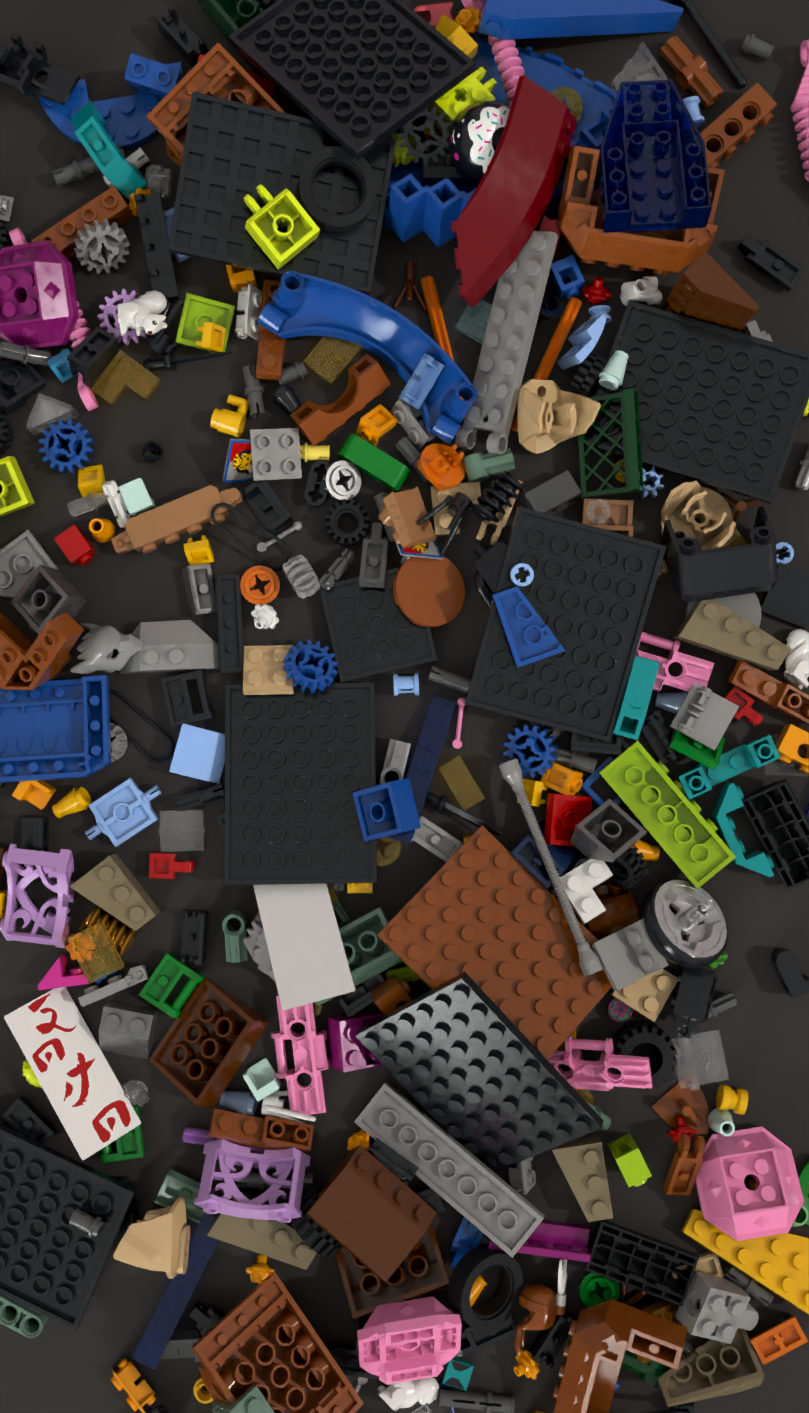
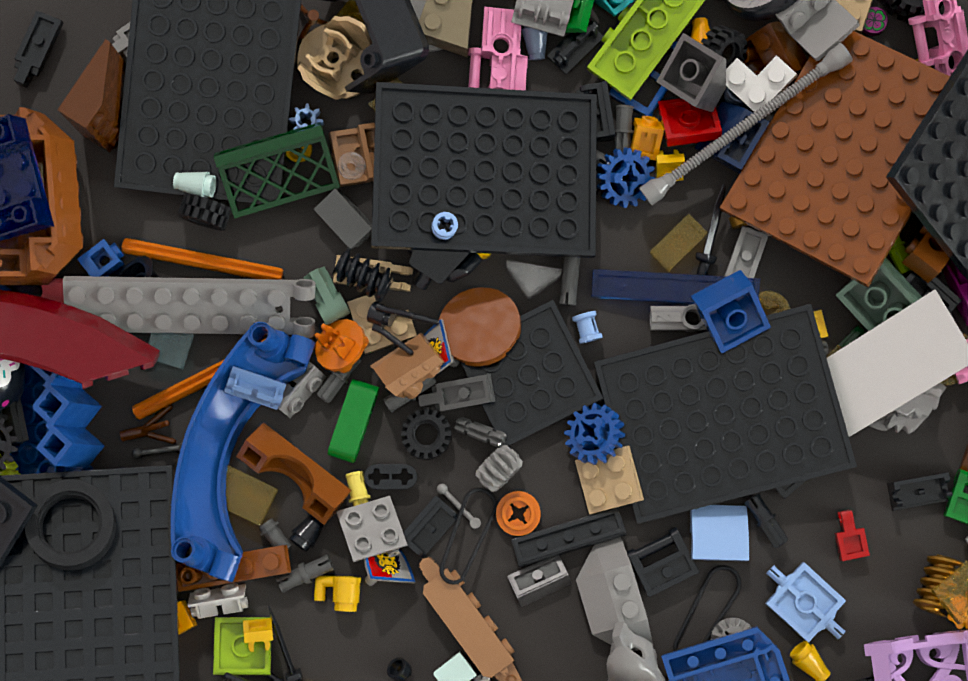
camera: 100 degrees left, 5 degrees down
(117, 892) = (894, 585): dark tan wedge -> none
(182, 830) = (808, 533): clear piece -> none
(198, 551) = (498, 589): yellow tile -> none
(234, 944) = (908, 444): sand green piece -> none
(264, 616) = (552, 499): white plant -> none
(281, 211) = (129, 592): neon yellow hinge -> none
(351, 485) = (381, 439): light grey gear -> none
(375, 424) = (311, 429): light orange bracket -> none
(392, 272) = (137, 452): none -> dark grey hinge
(457, 742) = (635, 259): bright pink hinge -> none
(460, 646) = (532, 278): none -> clear slope
(524, 629) = (502, 209): blue wing -> none
(551, 415) = (257, 239): tan piece -> none
(583, 342) = (169, 223): light blue slope -> none
(596, 292) = (110, 224): red plant -> none
(600, 309) = (134, 215): light blue bush -> none
(636, 697) = (543, 77): teal slope -> none
(641, 291) = (99, 177): white plate -> none

